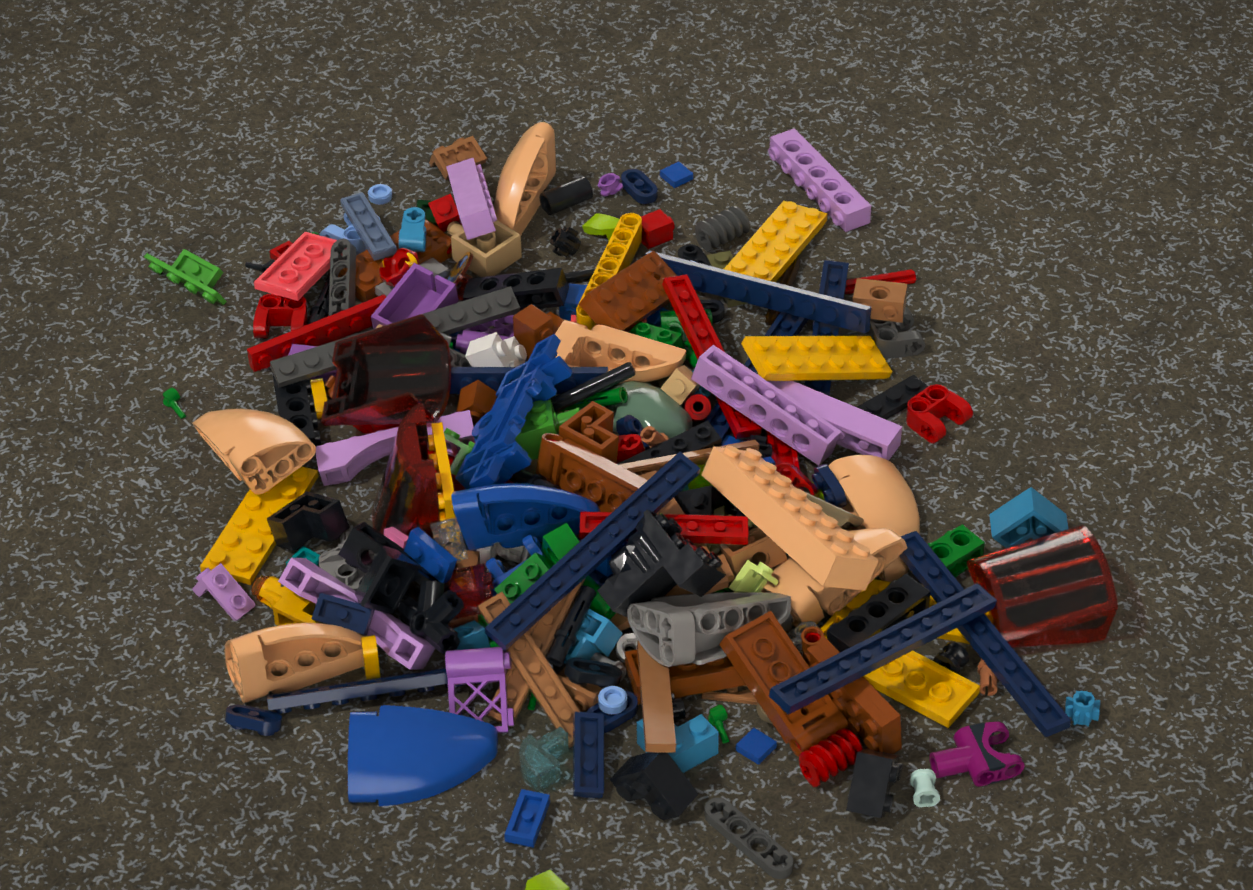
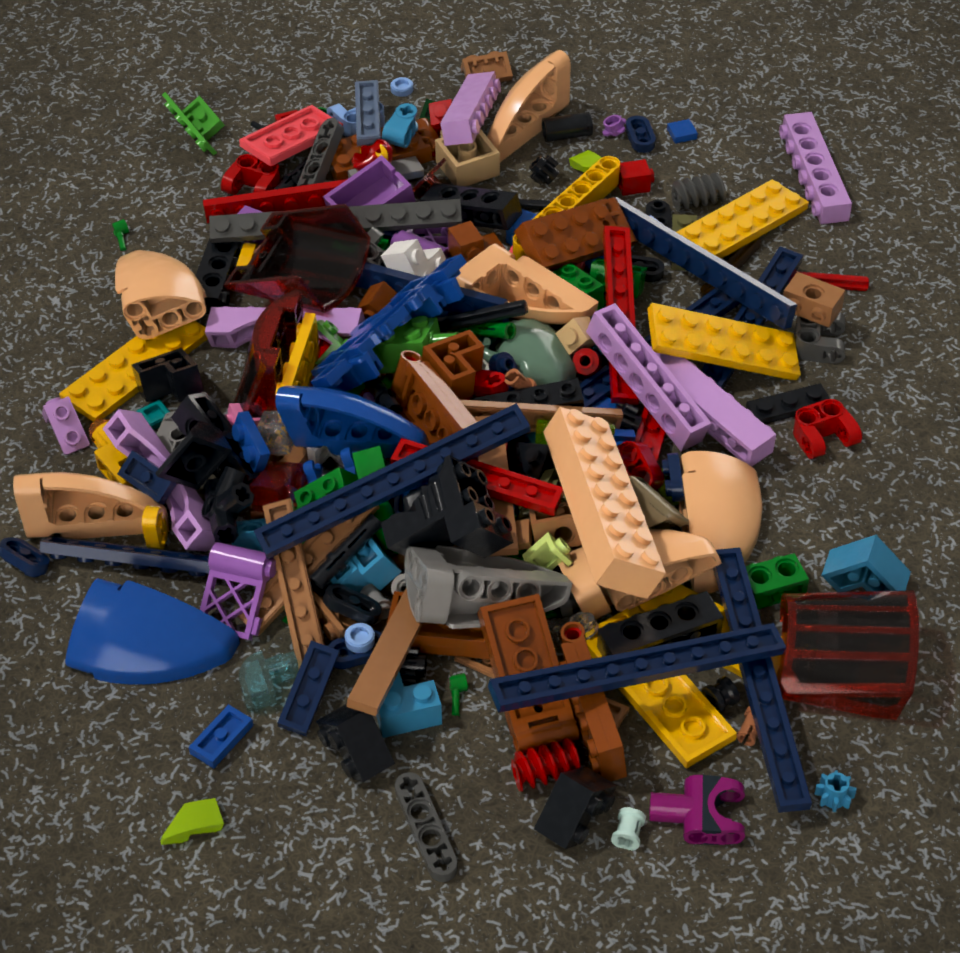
camera: 20 degrees right, 5 degrees up
(756, 746) = (481, 728): blue tile -> none

